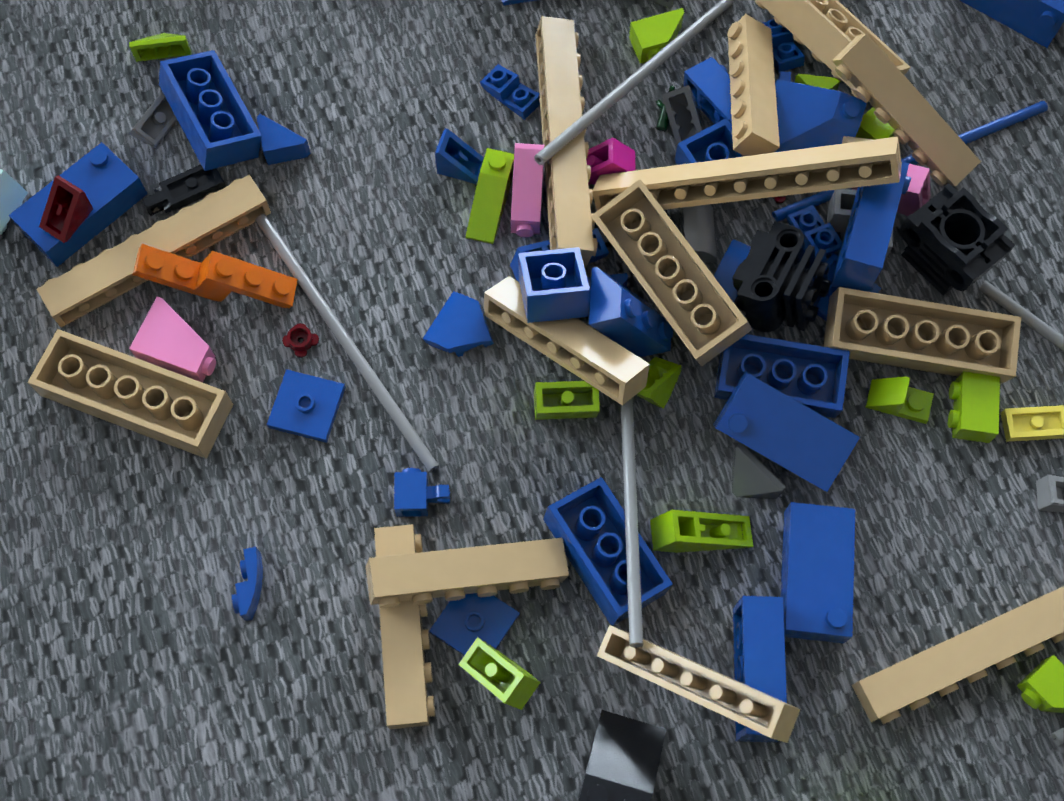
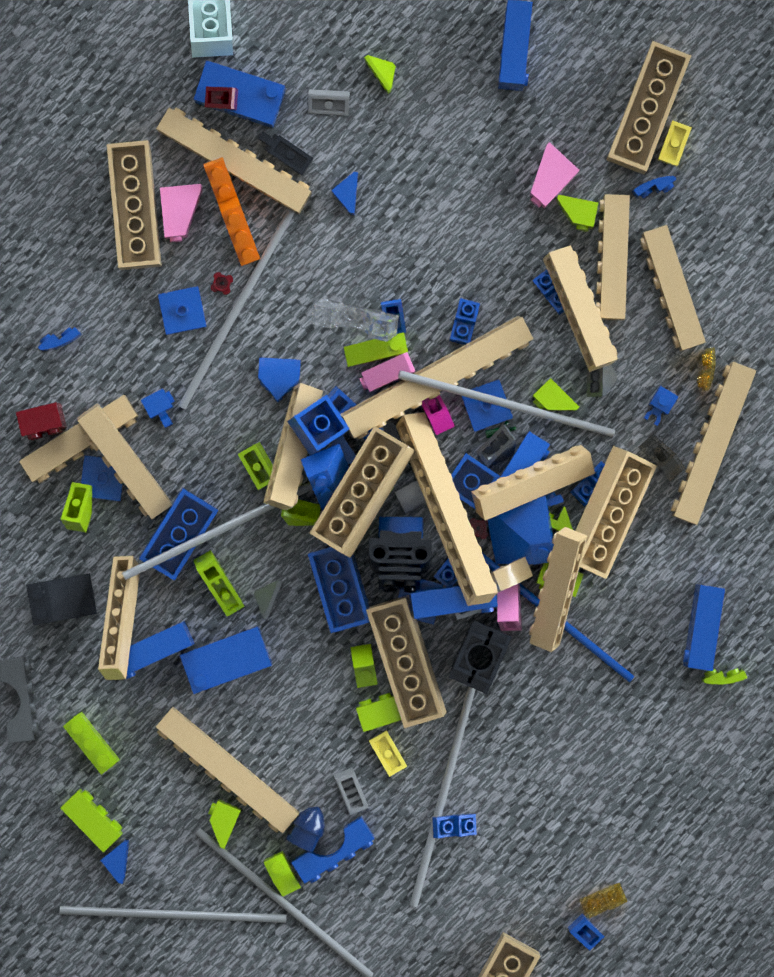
camera: 65 degrees right, 20 degrees up
(209, 110) = (344, 138): blue brick -> none
(346, 661) = (41, 420): none -> dark red brick
(439, 191) = (338, 314): none -> clear arch
(630, 116) = (486, 414): none -> blue plate
(786, 431) = (300, 605): blue brick -> none

